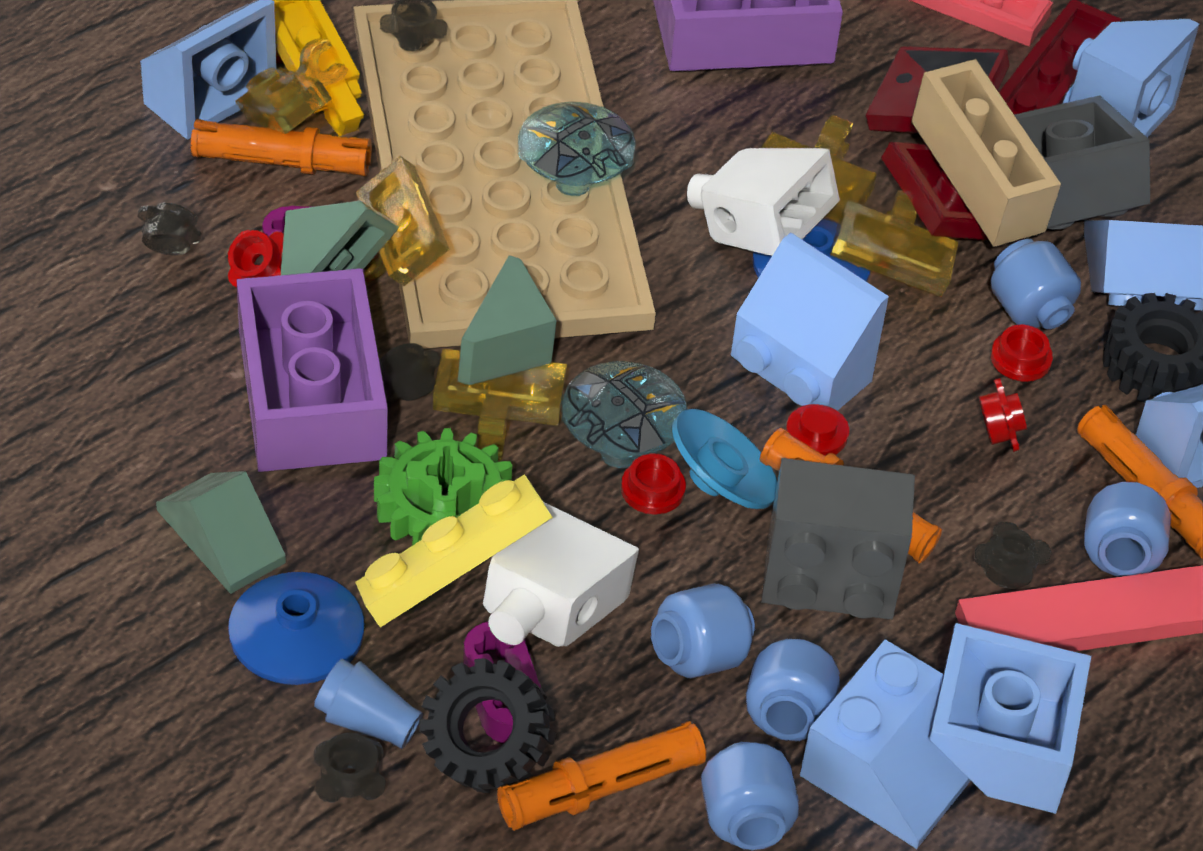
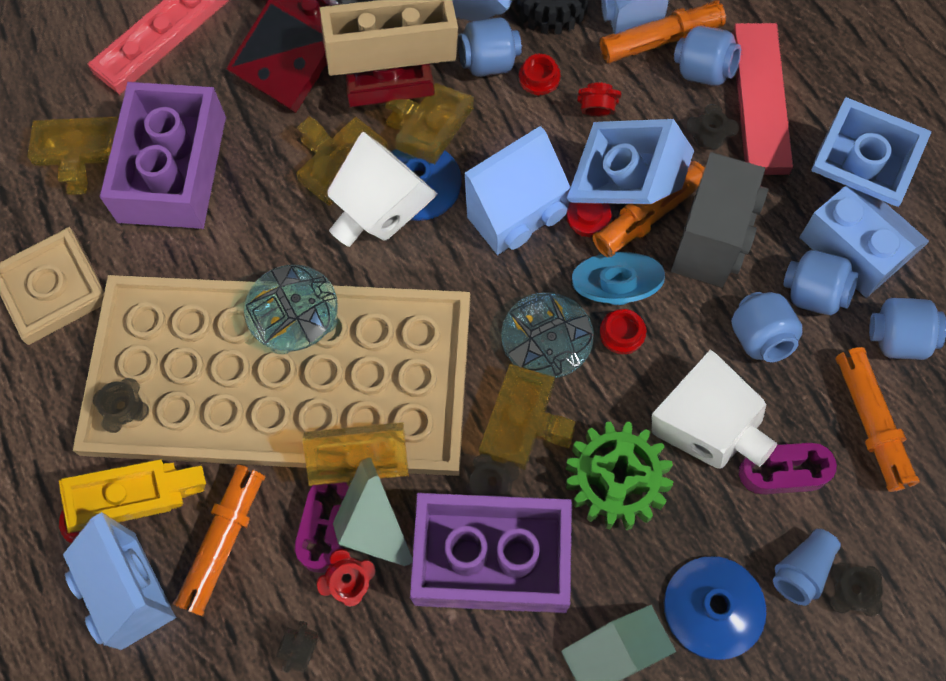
camera: 70 degrees left, 20 degrees up
(286, 97) = (179, 521): clear yellow plate -> none
(451, 549) = (697, 478): light yellow plate -> none
(455, 700) = (873, 488): black tyre -> none
(509, 329) = (485, 393): sand green slope -> none
(886, 427) = (631, 162): none -> light blue slope

